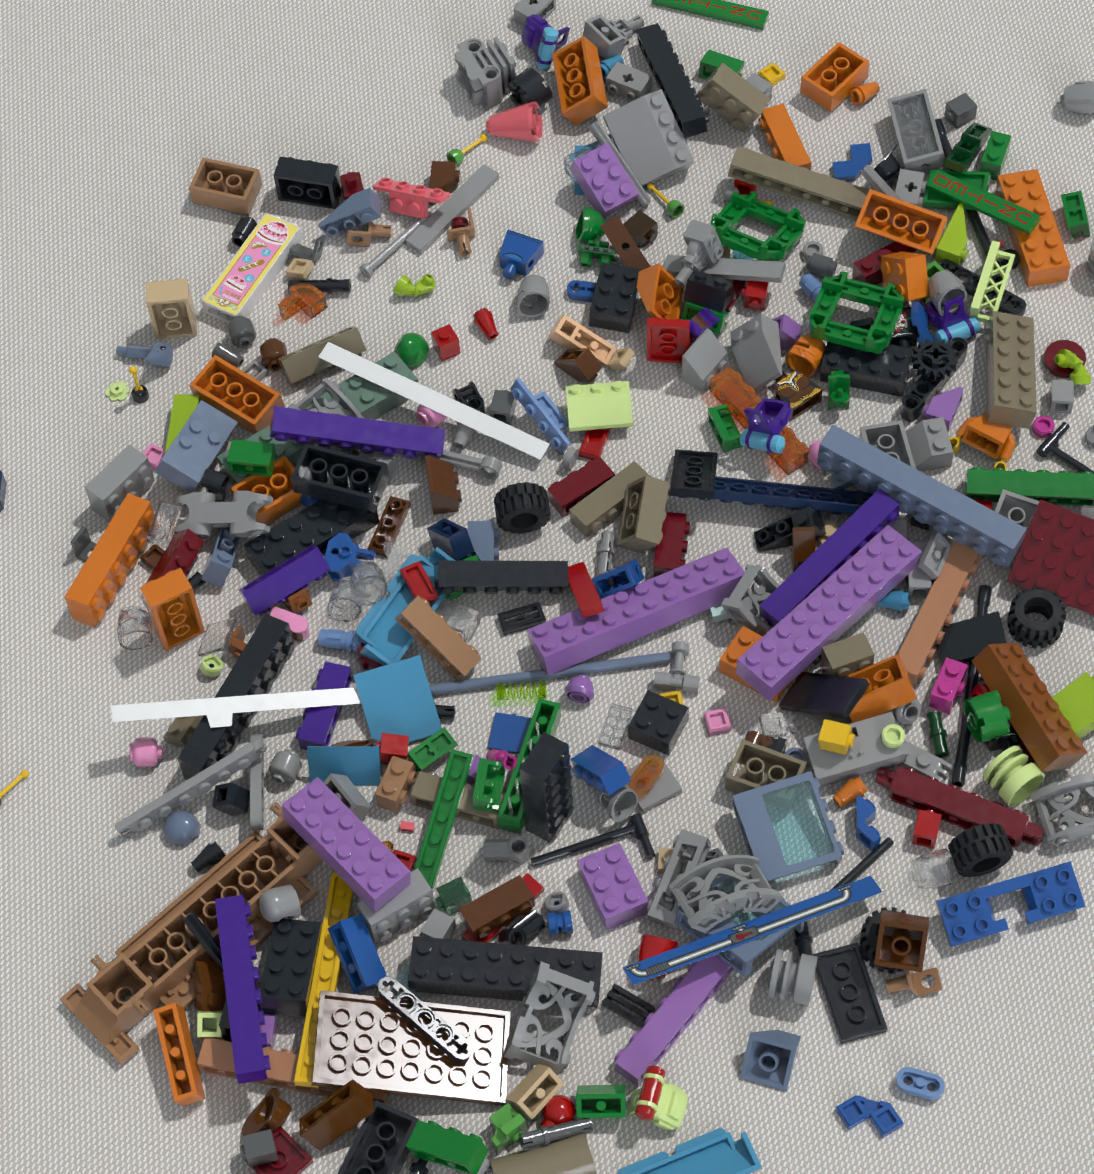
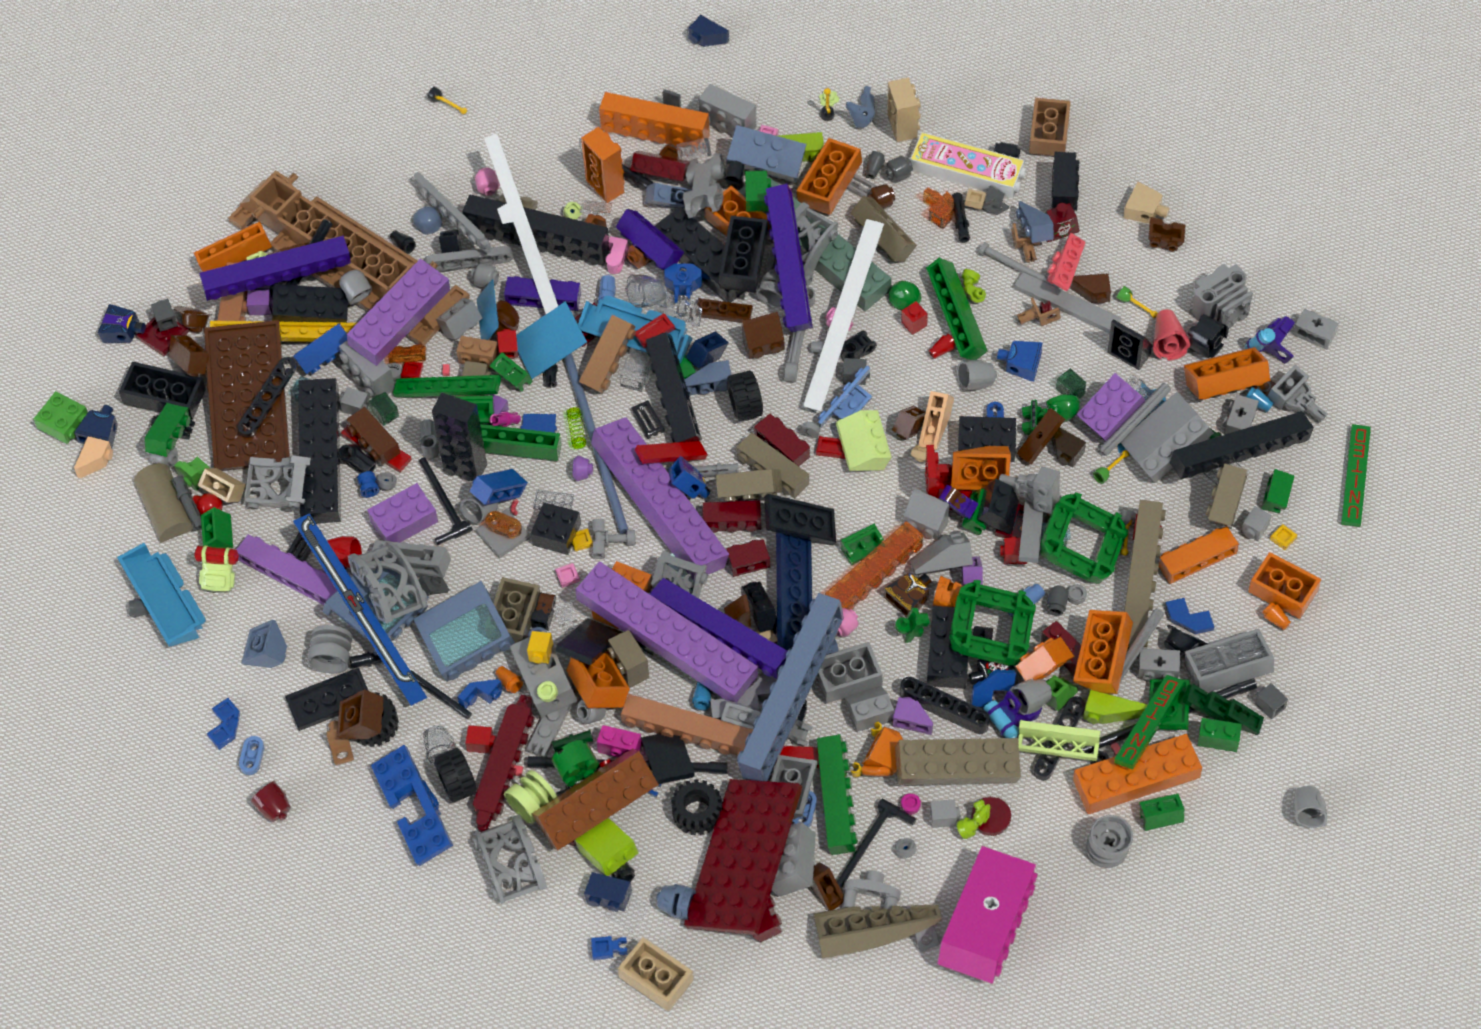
camera: 80 degrees right, 0 degrees up
(345, 122) = (1145, 204): none -> tan torso
(390, 108) = (1166, 235): none -> reddish brown cylinder
(445, 301) = (956, 309): none -> green brick
(527, 156) = (1128, 345): none -> black slope
(561, 217) = (1071, 384): none -> clear green brick
(726, 533) = (748, 557): none -> dark red brick
(766, 426) = (855, 565): dark purple piece -> none
(935, 359) = (944, 698): black gear -> none
(994, 1056) = (272, 802): none -> dark red helmet

